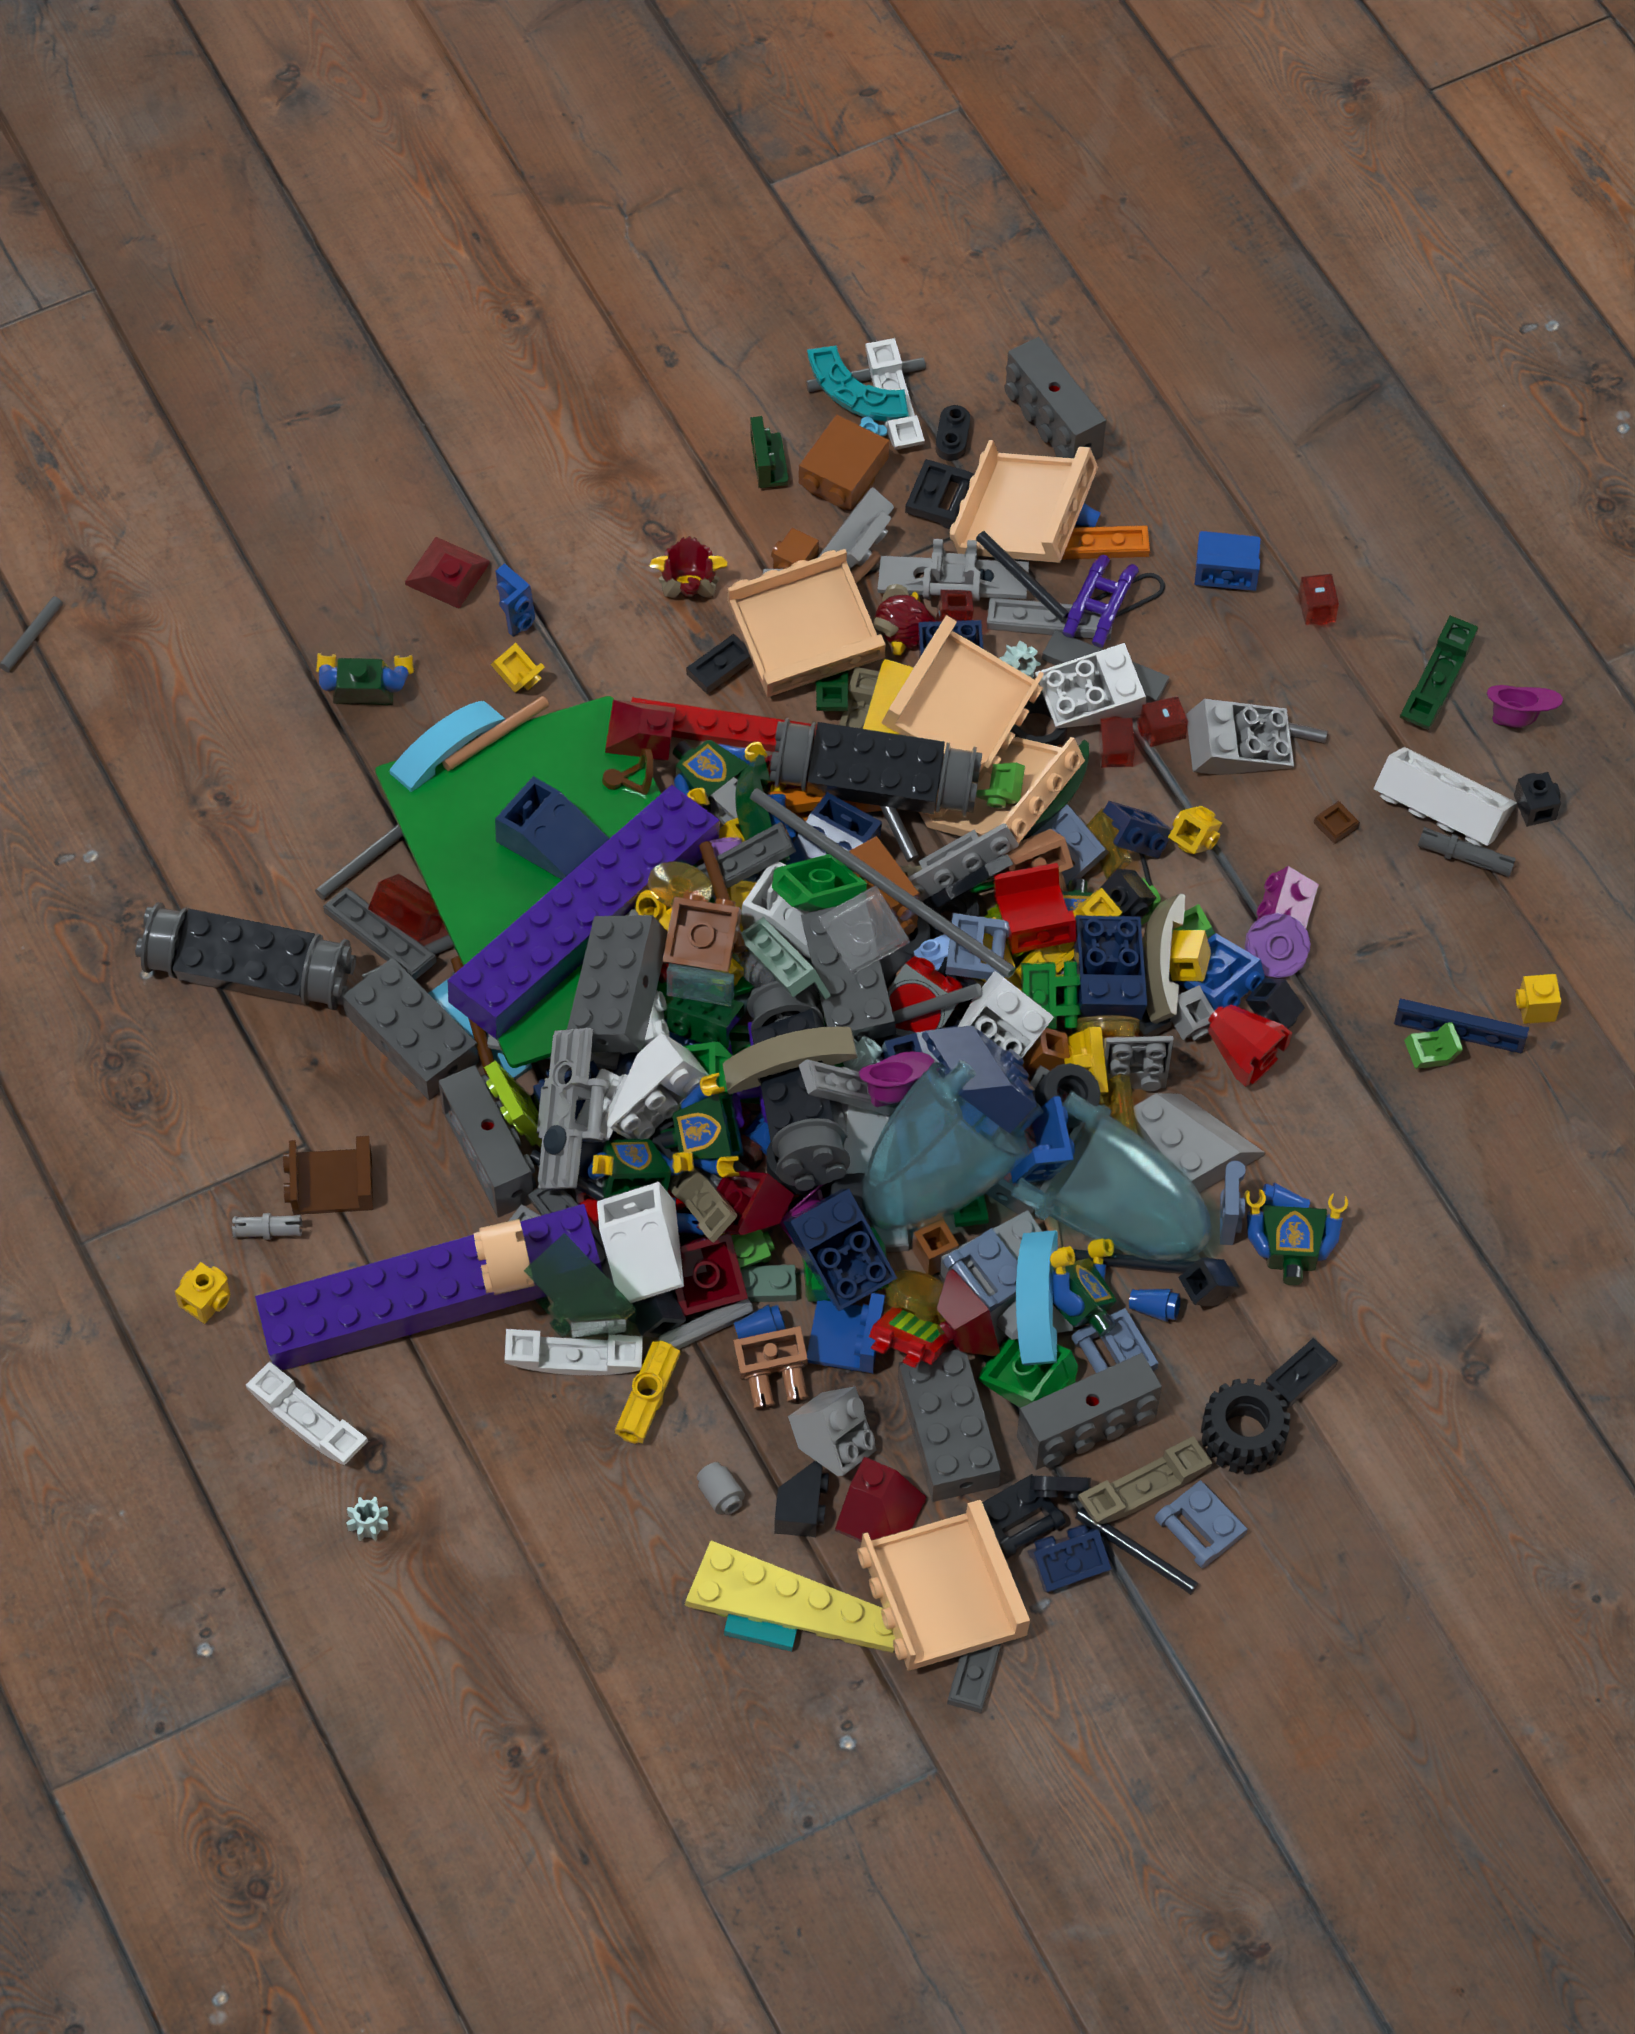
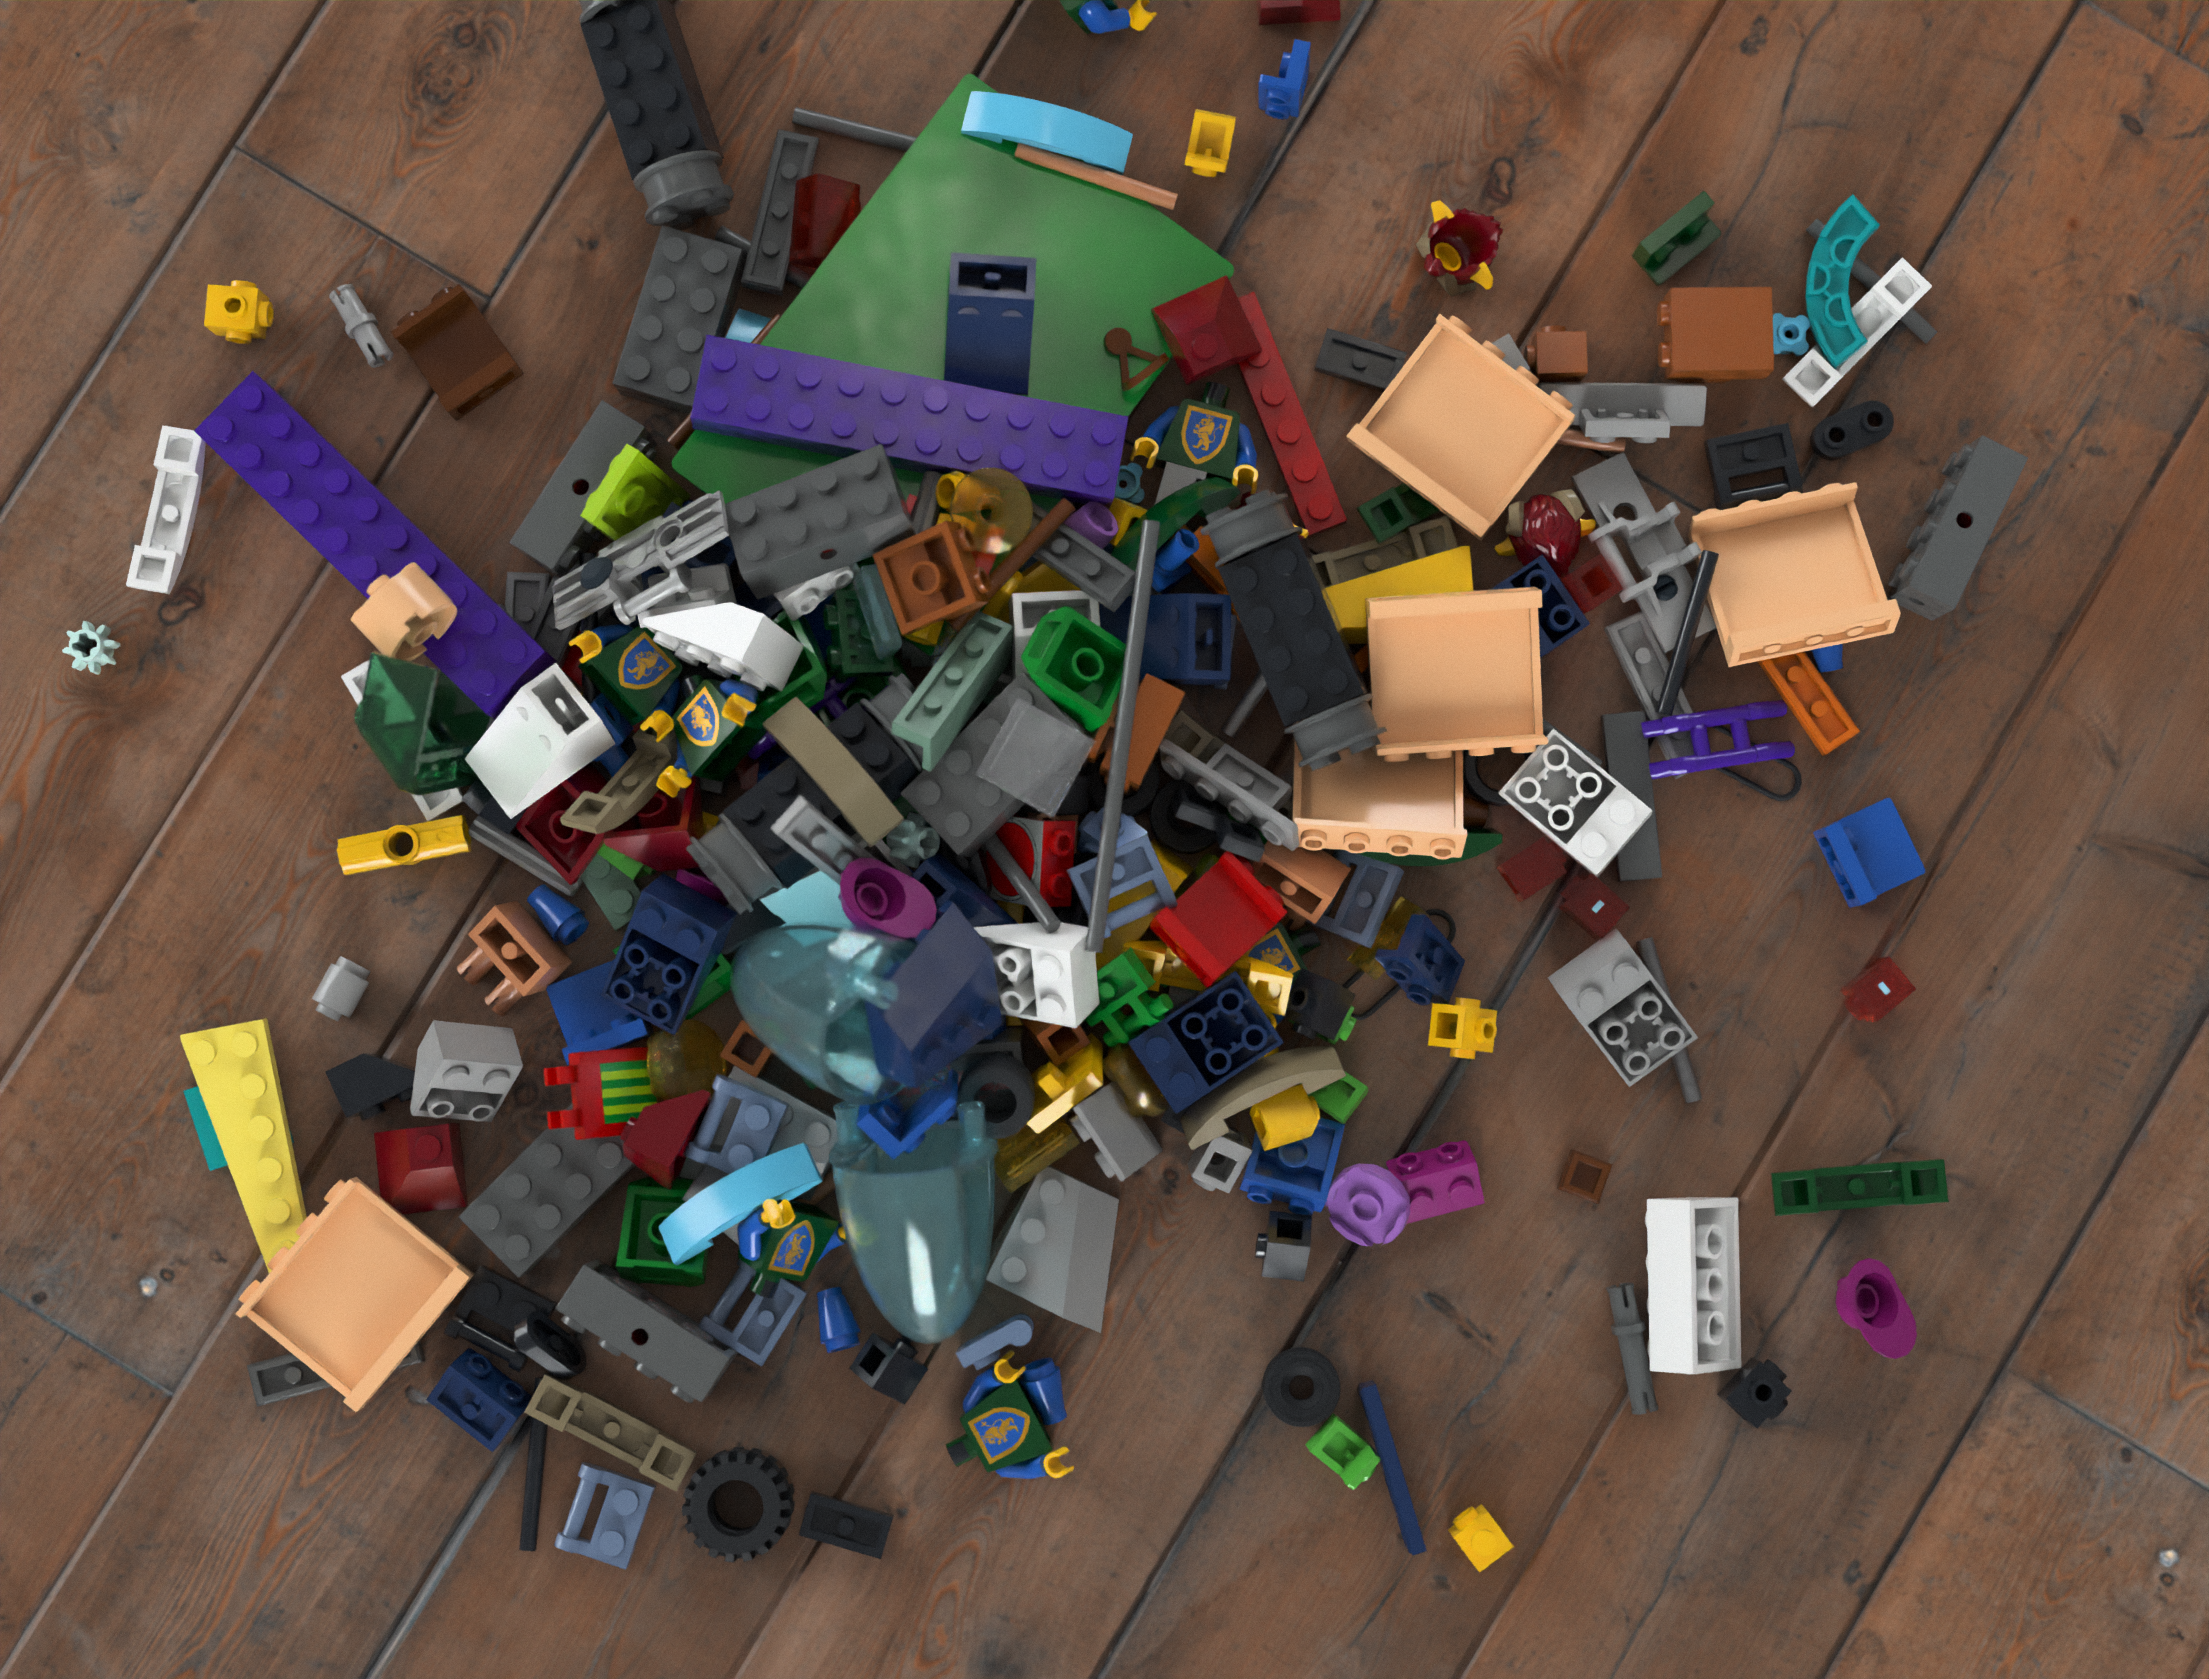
camera: 60 degrees right, 25 degrees up
(1004, 785) = (1367, 787): bright green bracket -> none
(1025, 654) = (1572, 697): light aqua gear -> none
(1247, 1041) = (1213, 1243): red cone -> none
(1372, 1068) = (1301, 1411): none -> black tyre

